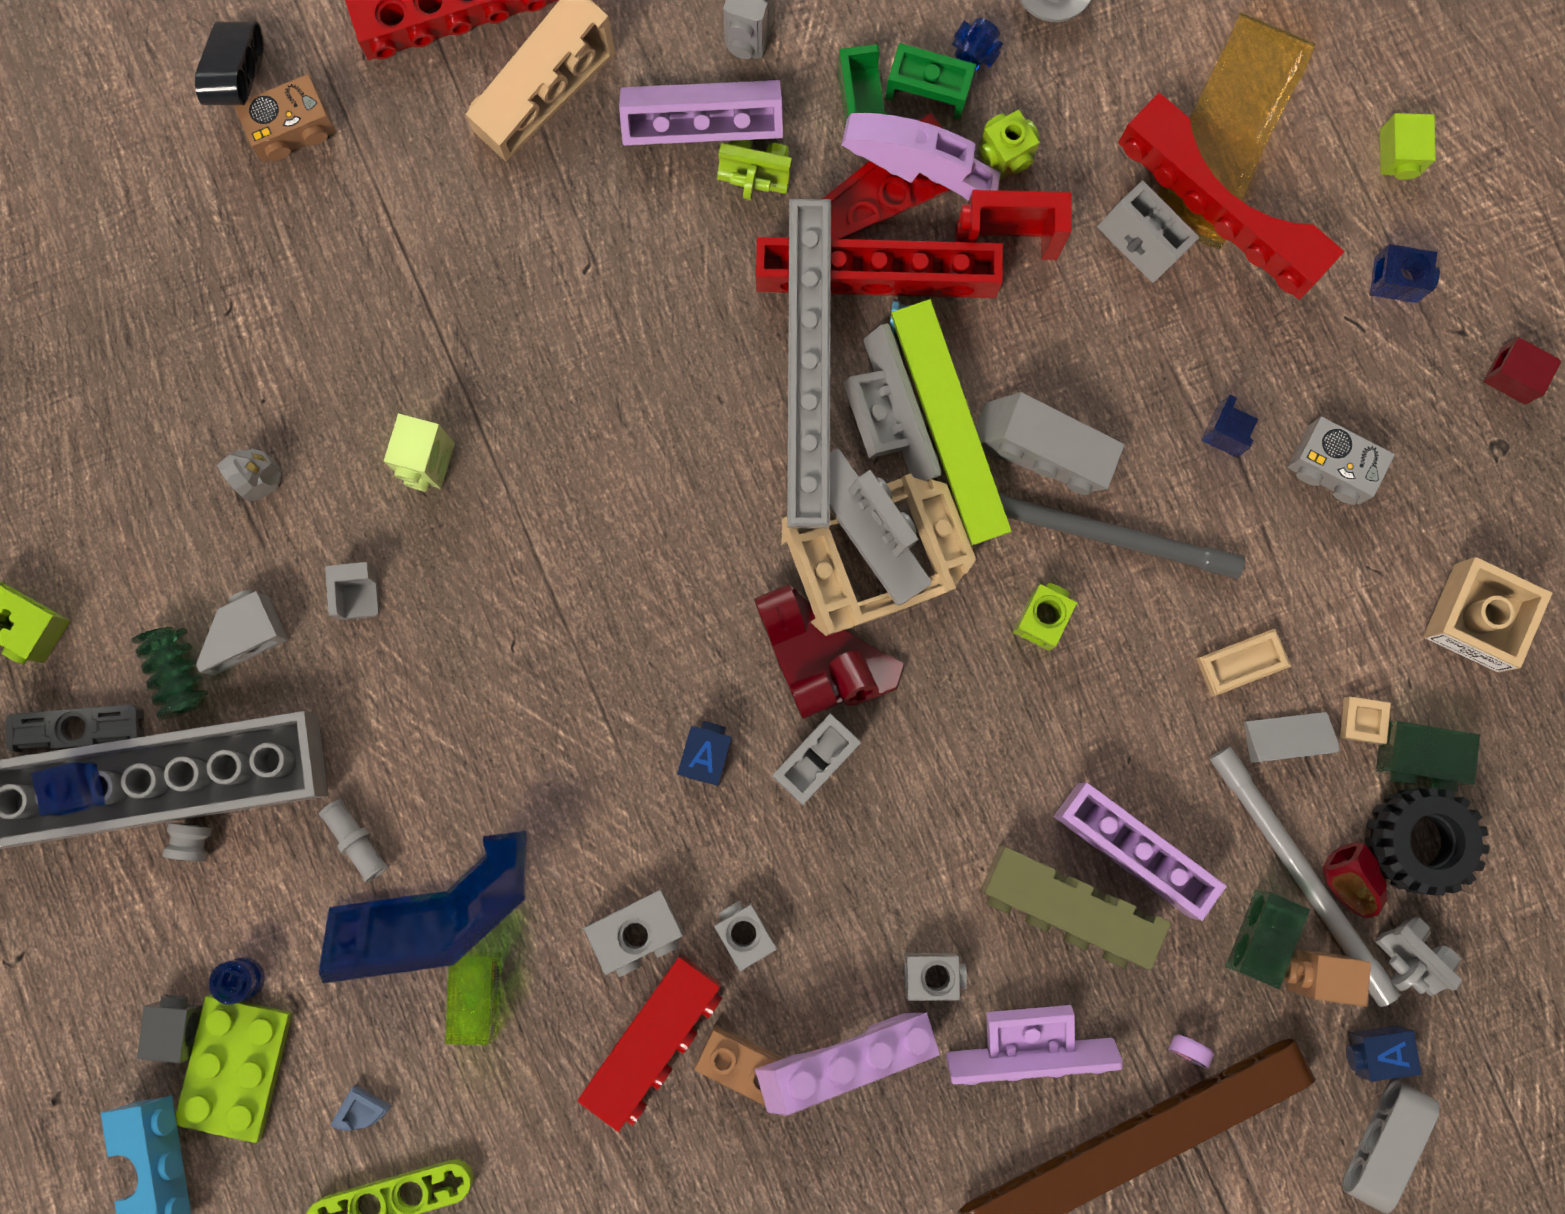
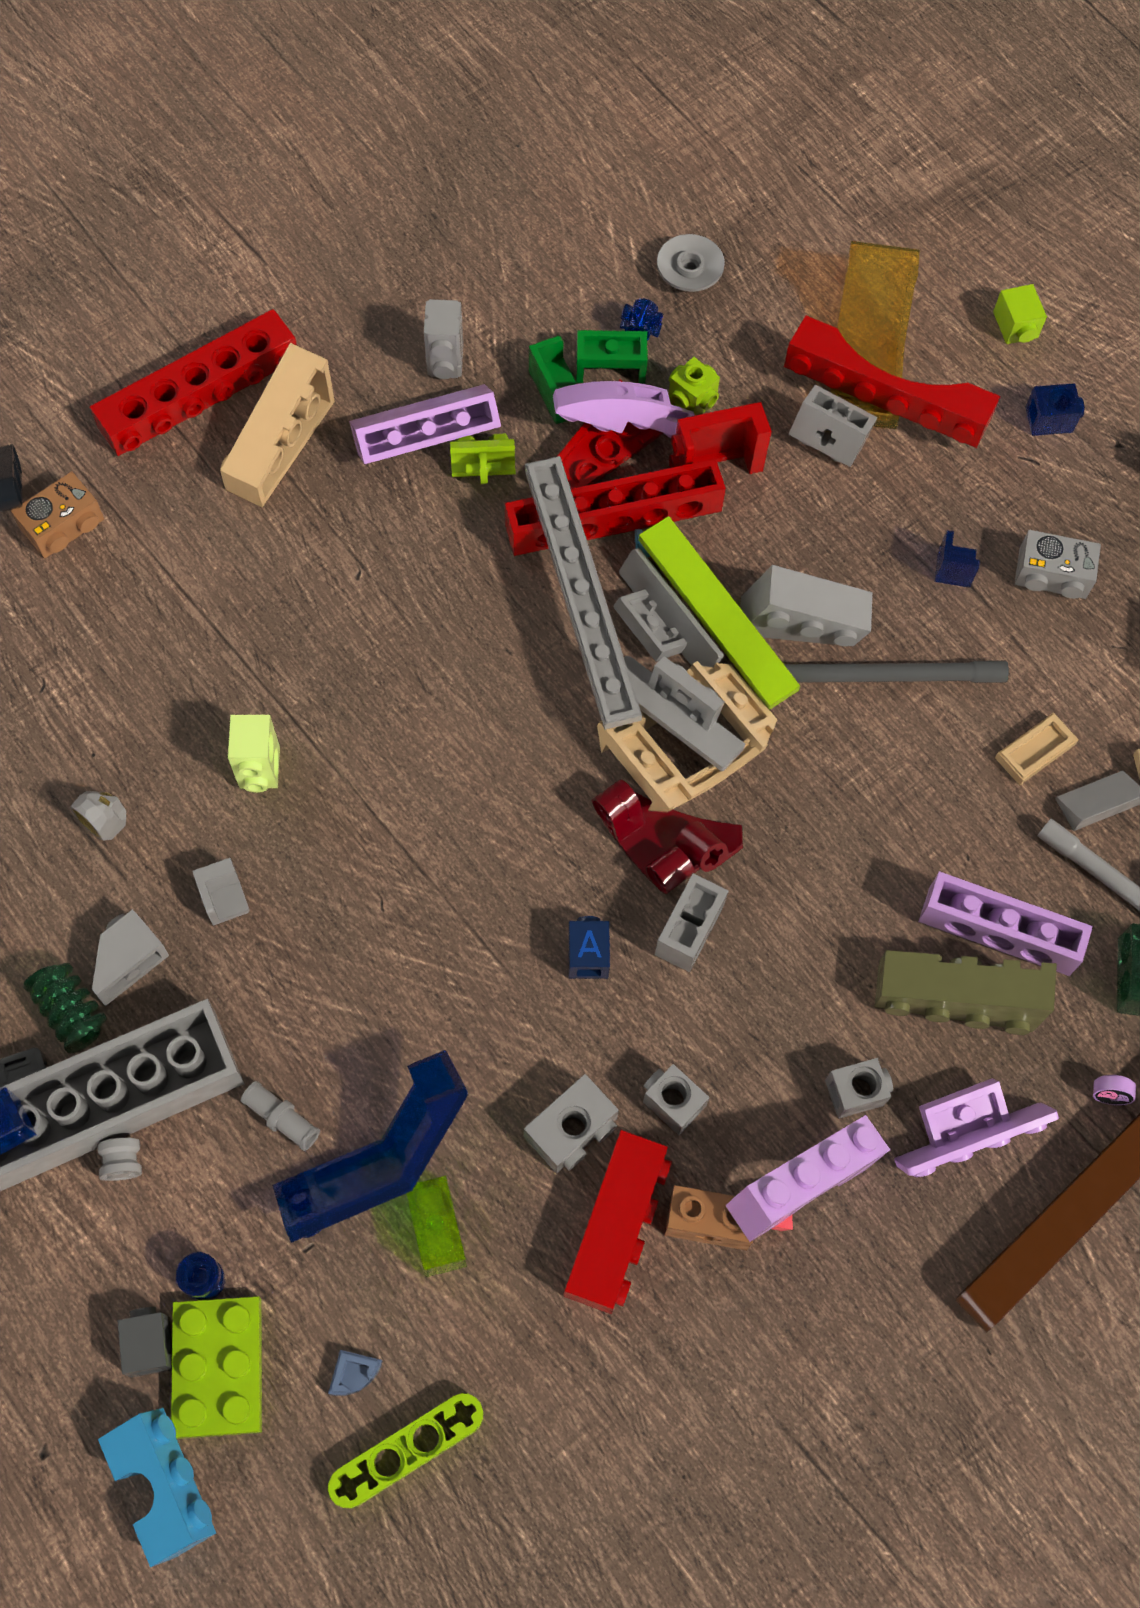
camera: 15 degrees left, 15 degrees down
(1032, 628) = (851, 766): lime brick -> none

